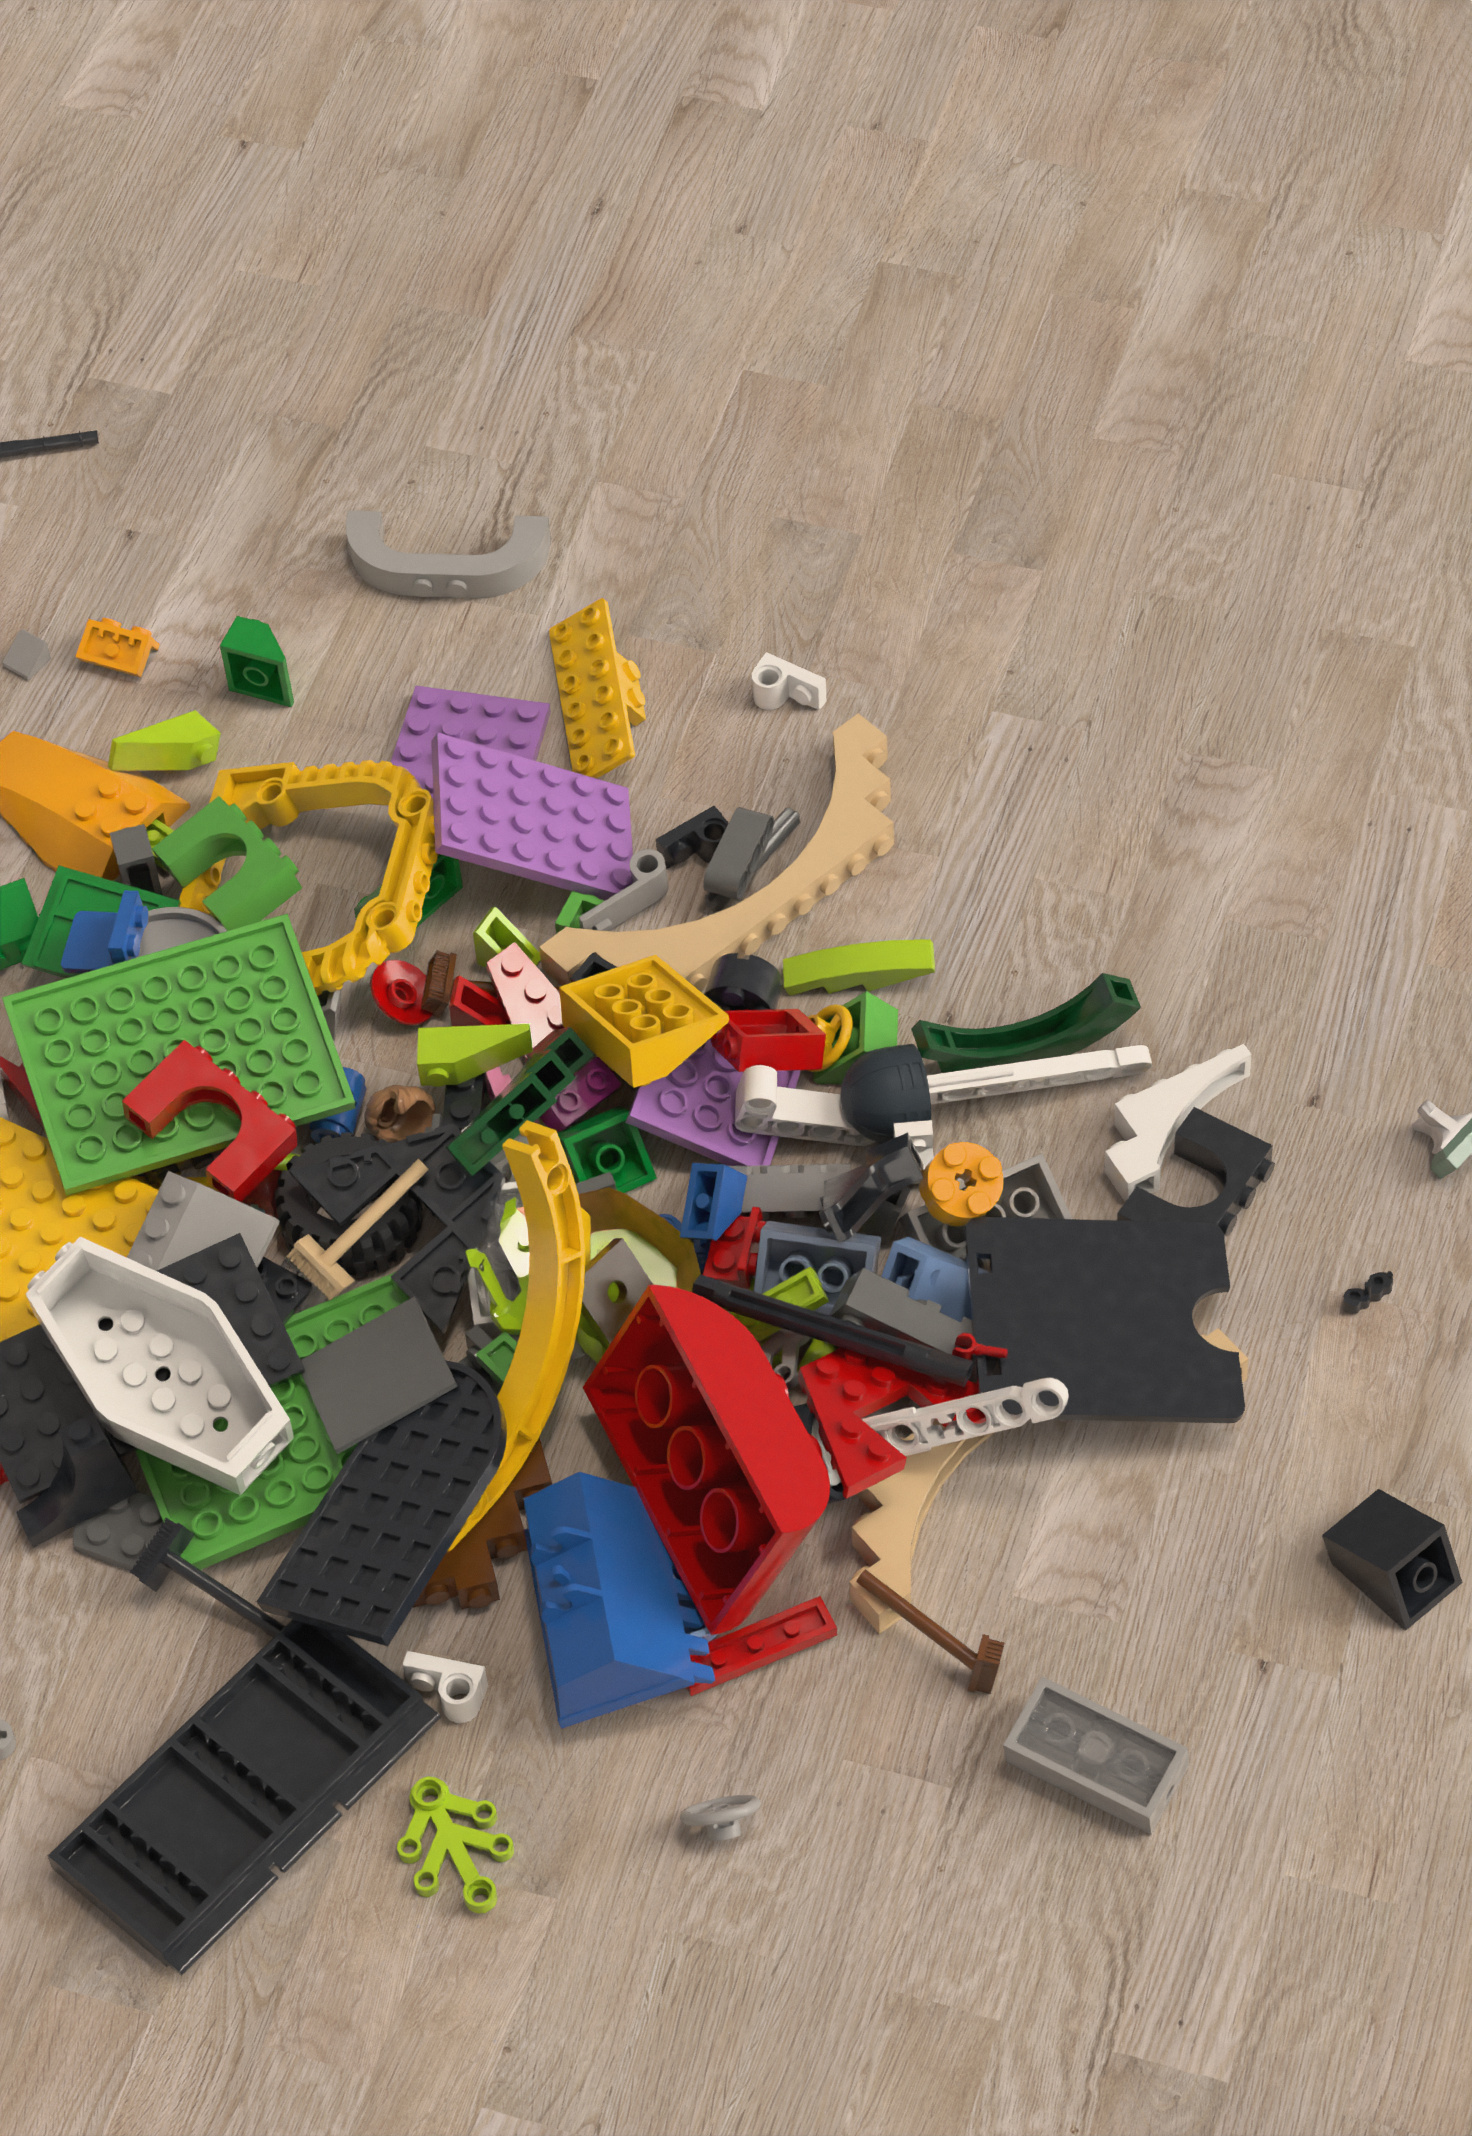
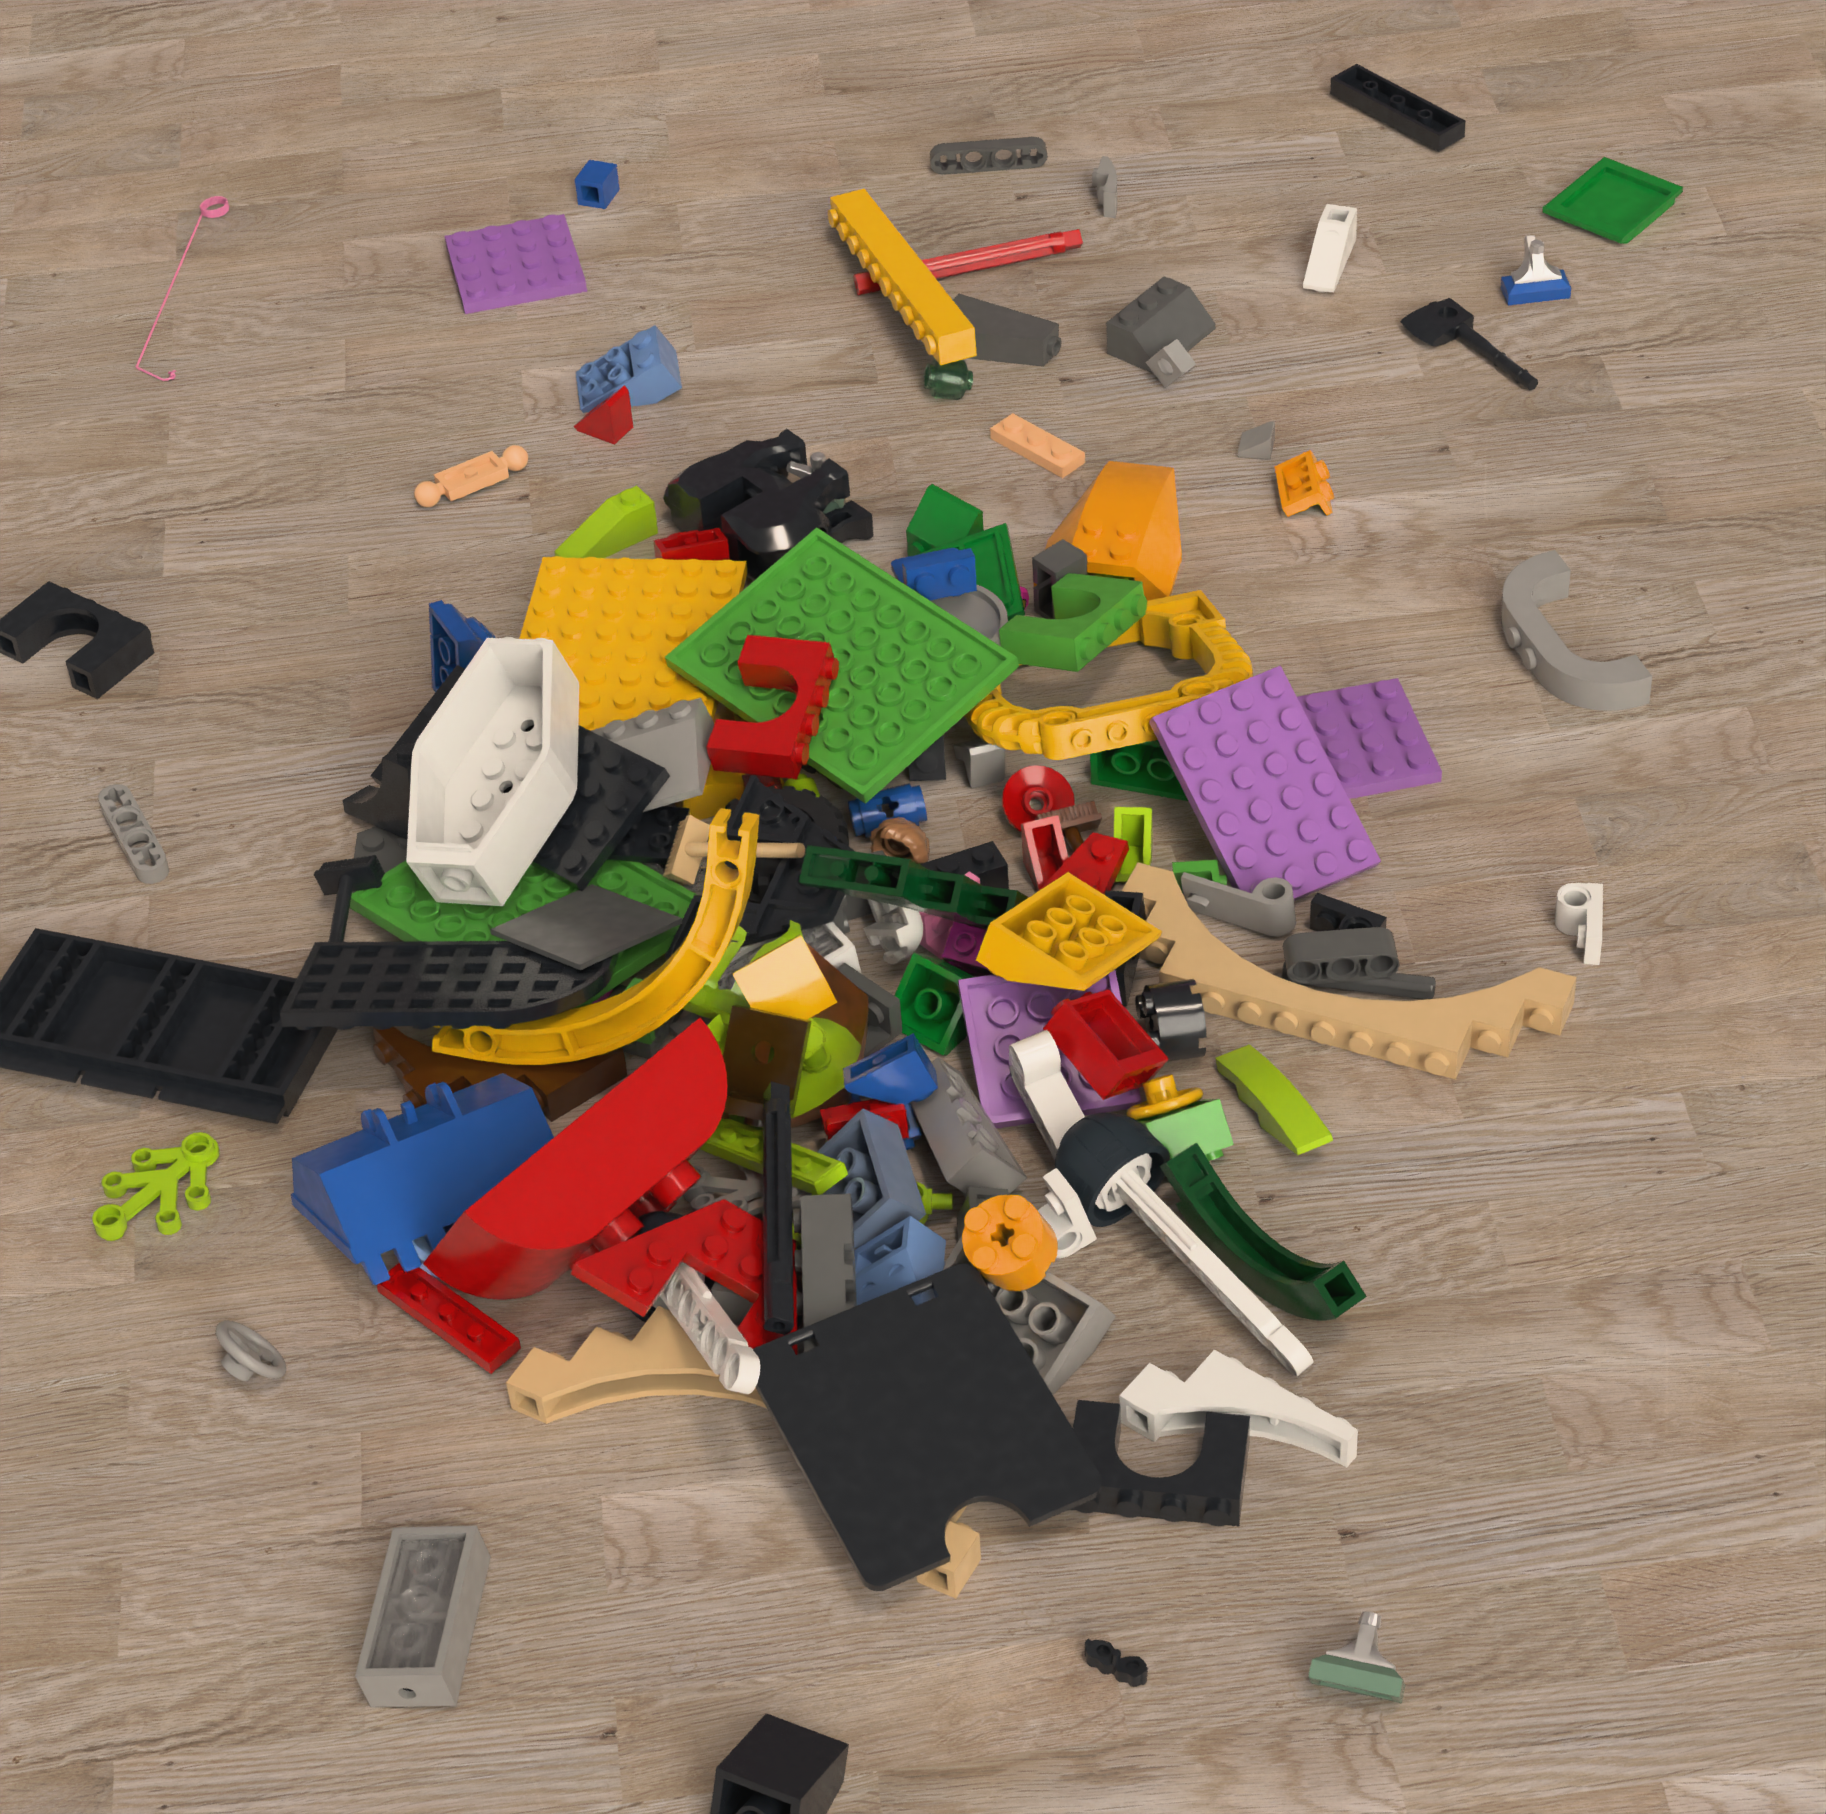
camera: 65 degrees right, 10 degrees down
(168, 745) = (1205, 549): lime slope -> none
(255, 662) = (1339, 562): green slope -> none
(450, 1679) = (311, 1122): white plate -> none
(465, 1052) = (963, 844): lime slope -> none
(596, 691) = (1484, 798): yellow bracket -> none
(859, 1192) = (953, 1166): black arch -> none
(968, 1341) = (811, 1321): red hand -> none
(983, 1663) = (486, 1473): reddish brown piece -> none

